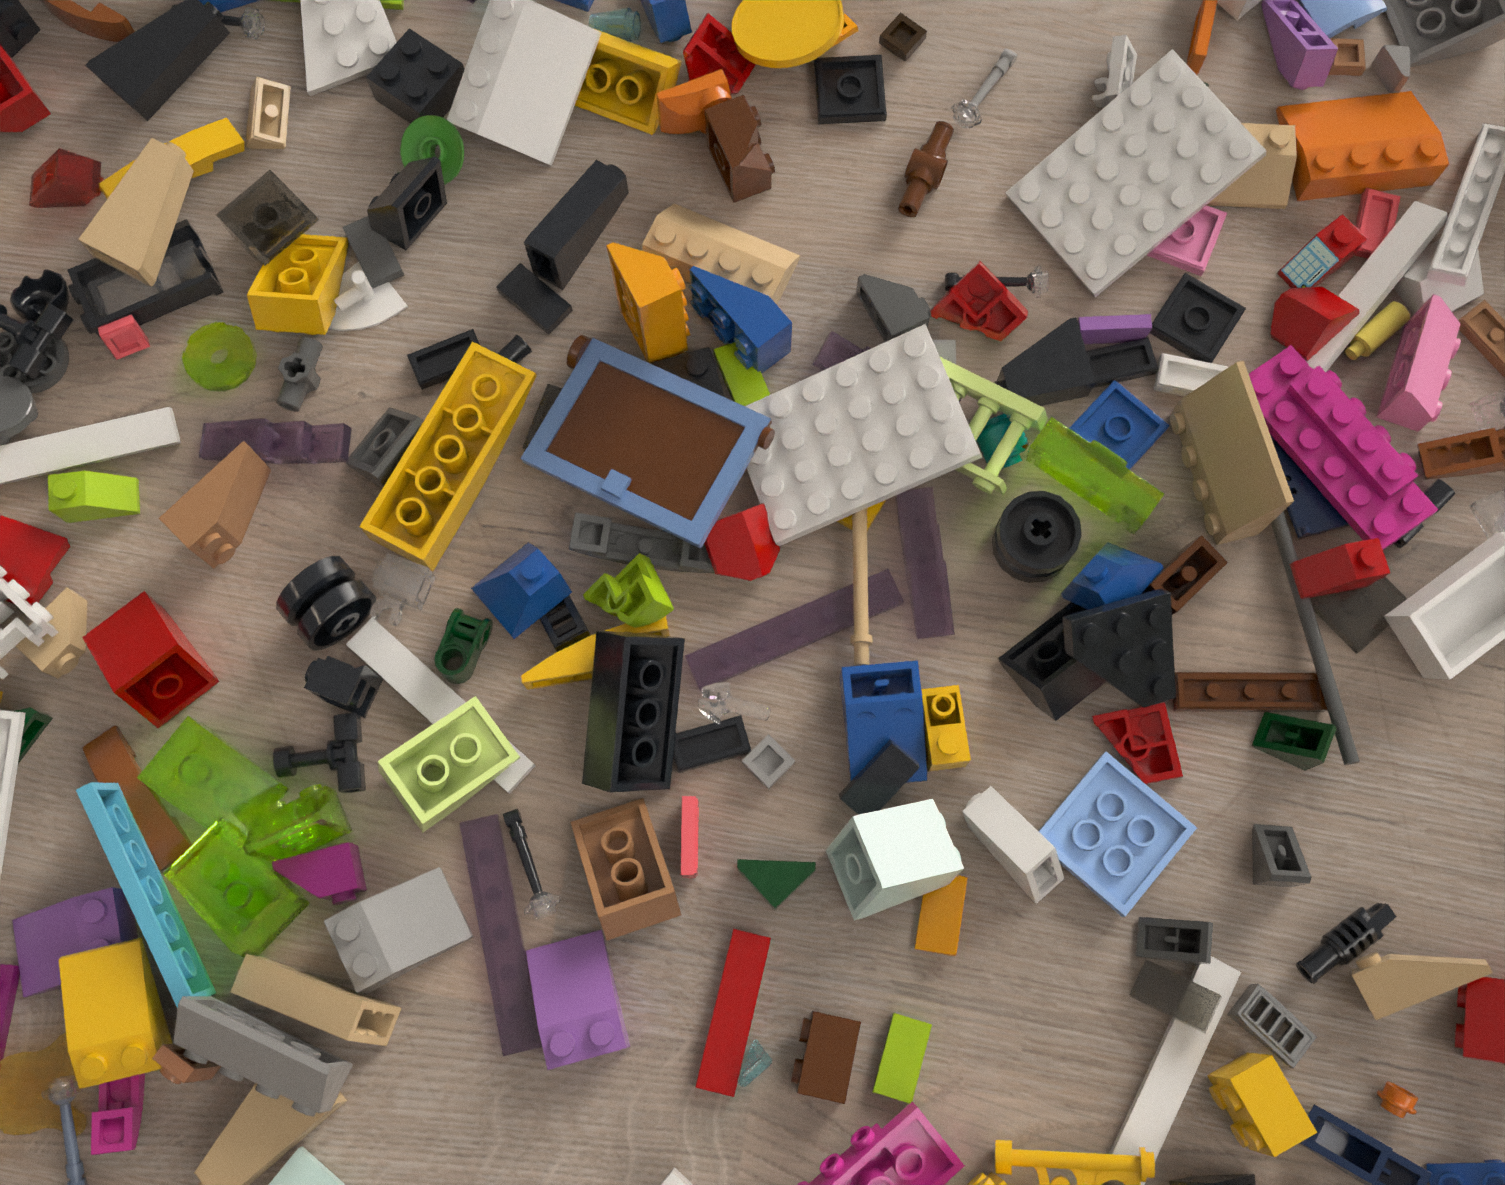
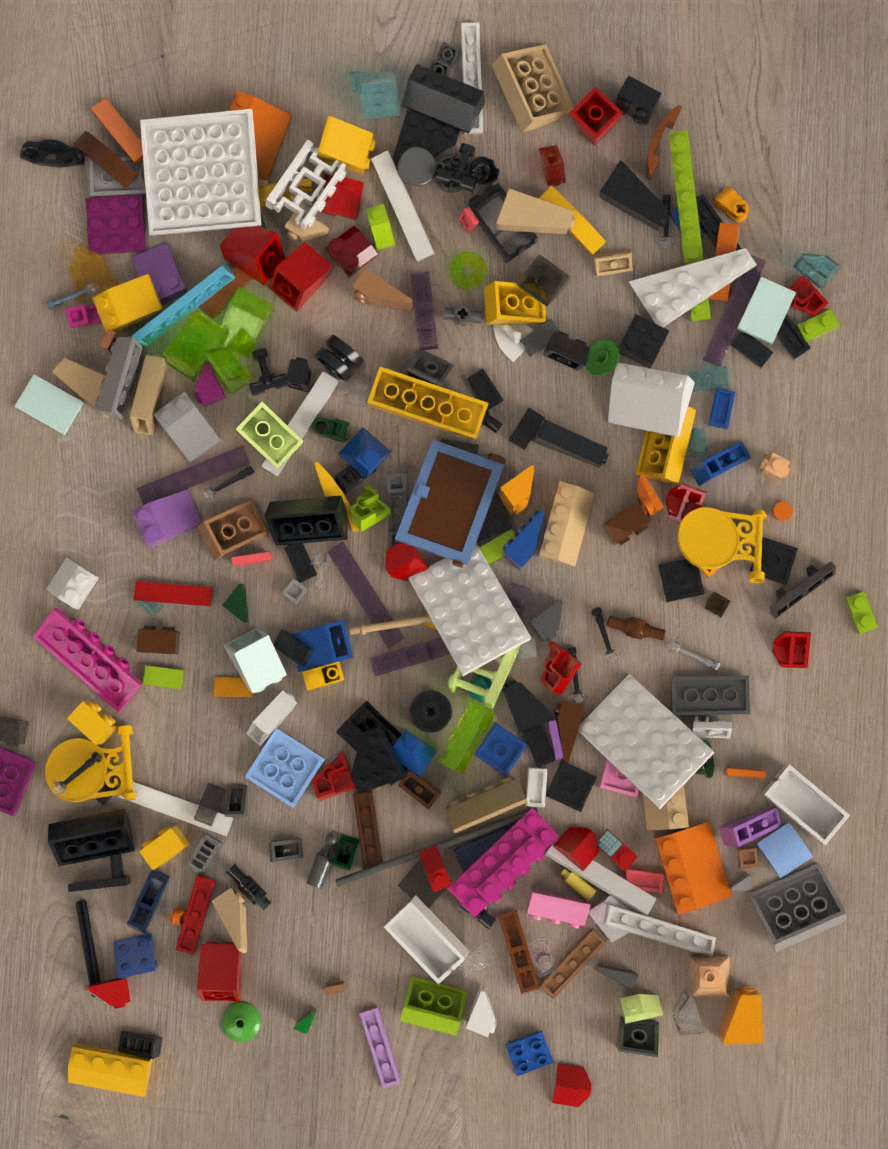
camera: 85 degrees right, 10 degrees up
(74, 738) = (253, 251): none -> red slope
(127, 559) = (351, 251): none -> dark red slope
(968, 216) = (610, 655): none -> black piece
(1059, 69) = (710, 695): none -> dark grey plate
(1082, 296) = (568, 722): none -> reddish brown slope
(1309, 787) = (322, 863): none -> dark grey wheel
(1395, 1061) = (195, 914): none -> red tile

